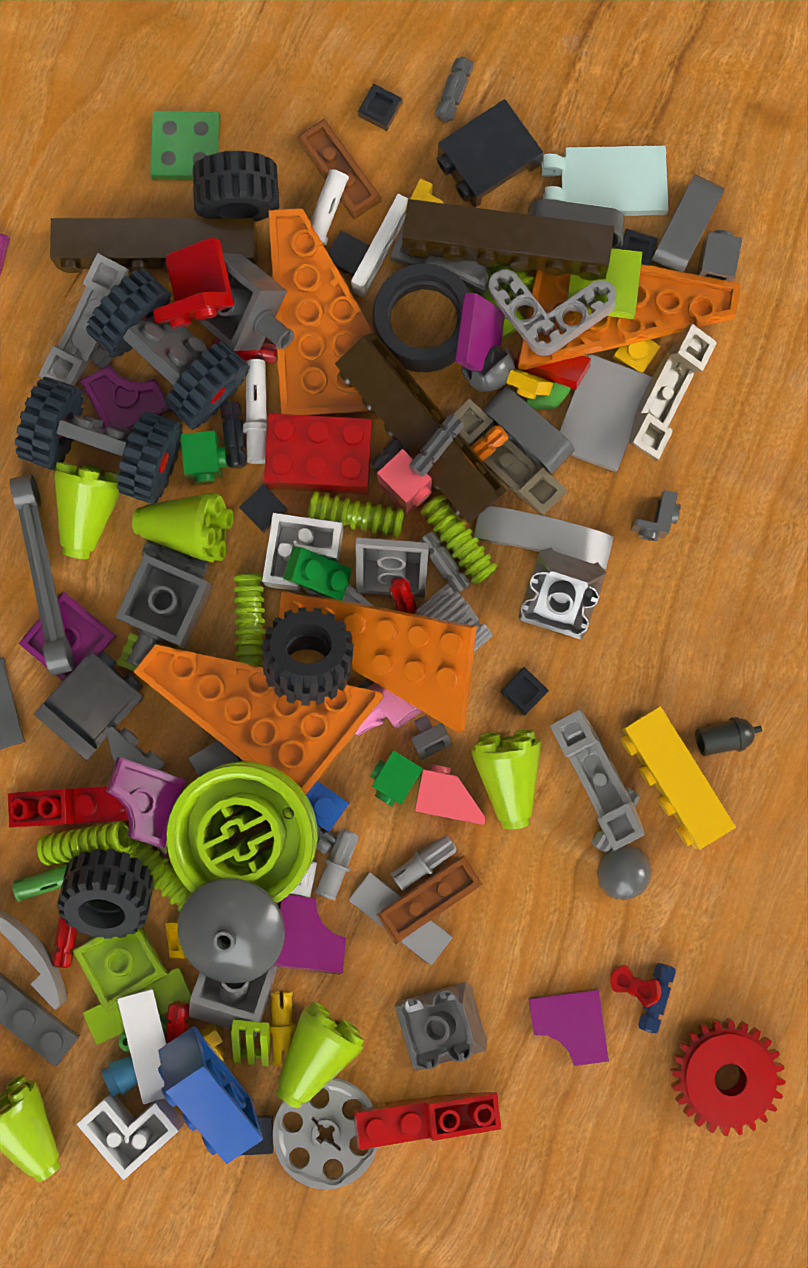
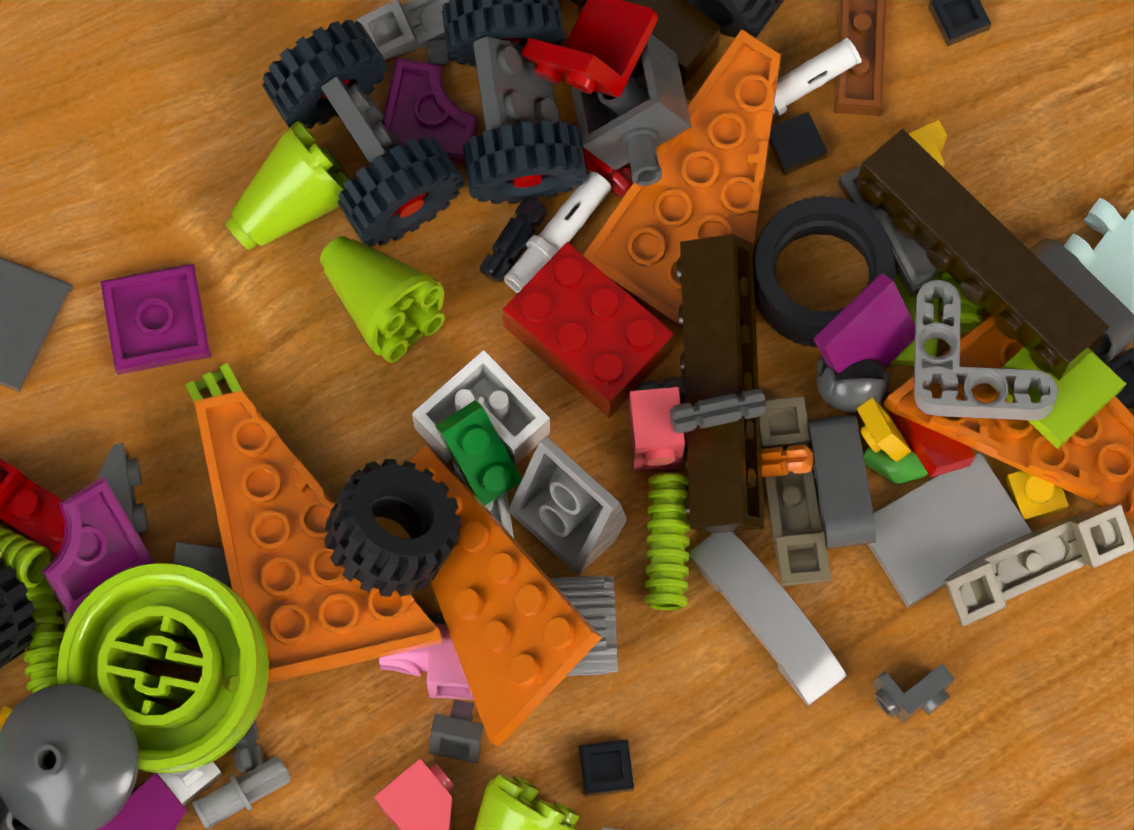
camera: 35 degrees right, 10 degrees down
(56, 646) = (136, 315): dark grey piece -> none
(90, 703) = (122, 401): black panel -> none
(162, 605) = (286, 359): dark grey brick -> none
(176, 559) = (340, 323): dark grey axle -> none
(203, 457) = (459, 236): green brick -> none
(249, 618) = (371, 442): lime piece -> none
(261, 506) = (480, 335): black tile -> none
(326, 805) = (281, 716): blue bracket -> none
(356, 514) = (577, 426): lime piece -> none
(380, 246) = (830, 162): white tile -> none
(394, 778) = (382, 747): green brick -> none
(402, 595) = (552, 549): red axle -> none
(445, 563) = (632, 556): light grey axle -> none
(454, 89) = (1057, 56): dark grey axle -> none
(488, 152) = (1039, 149): black panel -> none
(562, 593) = (734, 689): flat silver slope -> none

